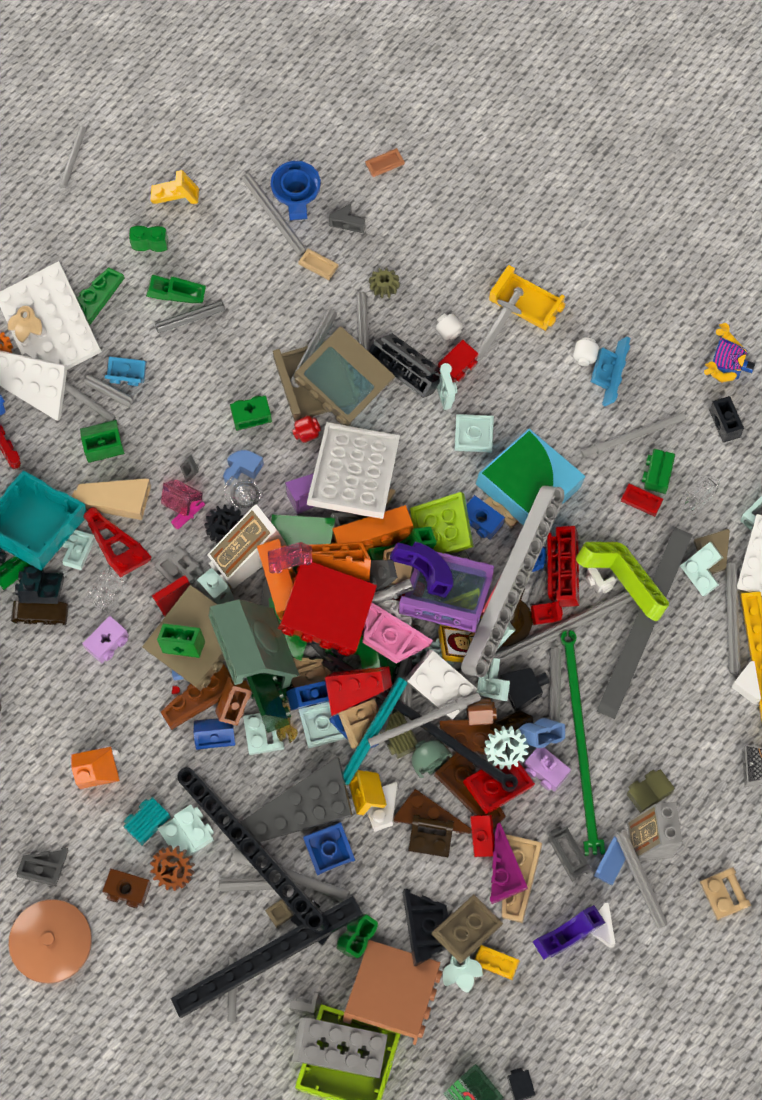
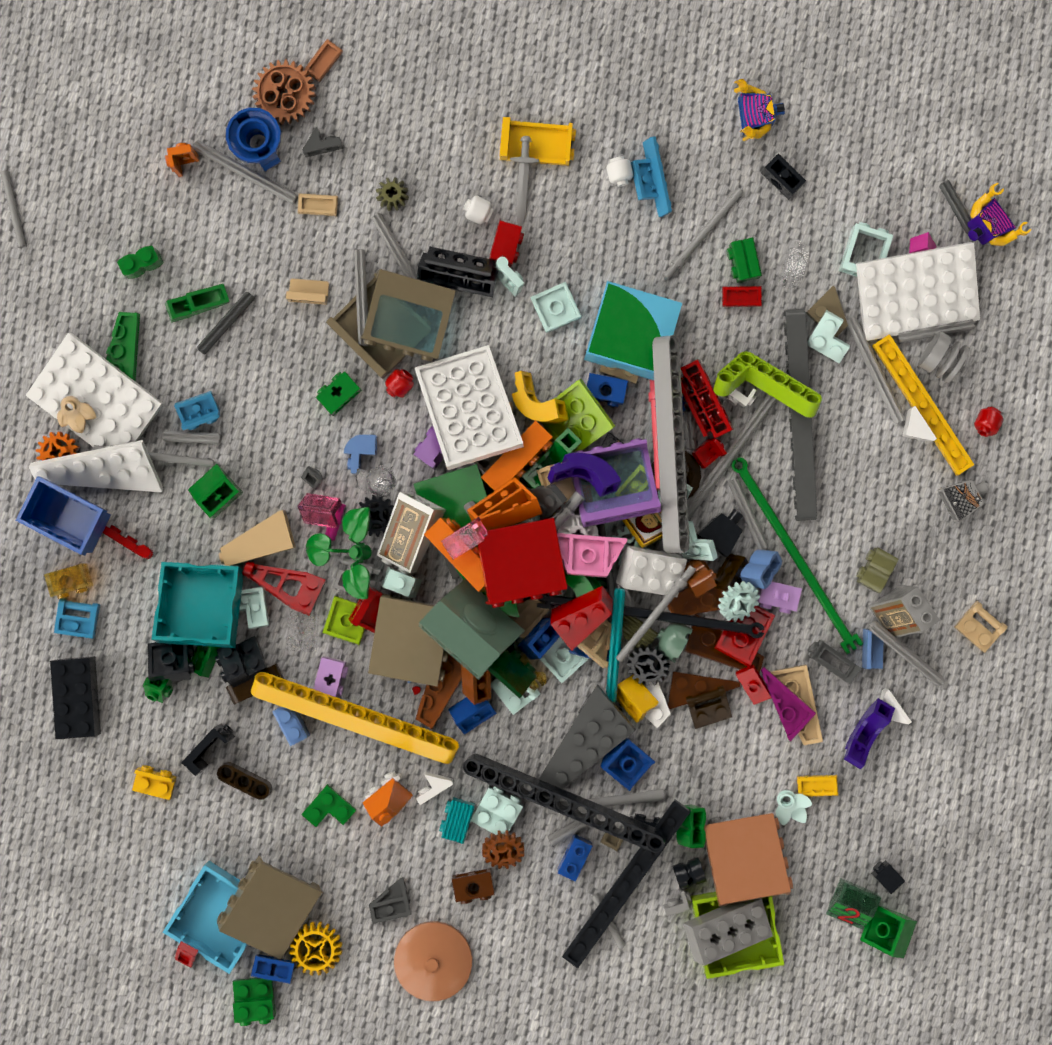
camera: 30 degrees left, 20 degrees up
(39, 747) = (328, 802): none -> green plate
(50, 660) = (291, 725): none -> medium blue brick
(109, 681) = (354, 717): none -> yellow beam
(141, 600) = (339, 624): none -> lime tile
(147, 780) = (438, 784): none -> white slope
(178, 561) = (356, 526): none -> green plant
(180, 188) = (135, 197): yellow bracket -> none
(181, 640) = (403, 656): green brick -> none
(228, 175) = (180, 155): none -> orange bracket
(233, 909) = (574, 857): none -> blue brick
(271, 325) = (308, 291): none -> tan panel
(332, 981) = (689, 873): none -> black wheel
(341, 169) = (300, 96): none -> nougat gear
(386, 766) = (638, 664): none -> black gear
(419, 506) = (527, 403): none -> yellow arch
(422, 919) = (745, 787): black wing -> none
(467, 928) = (780, 771): dark tan tile -> none

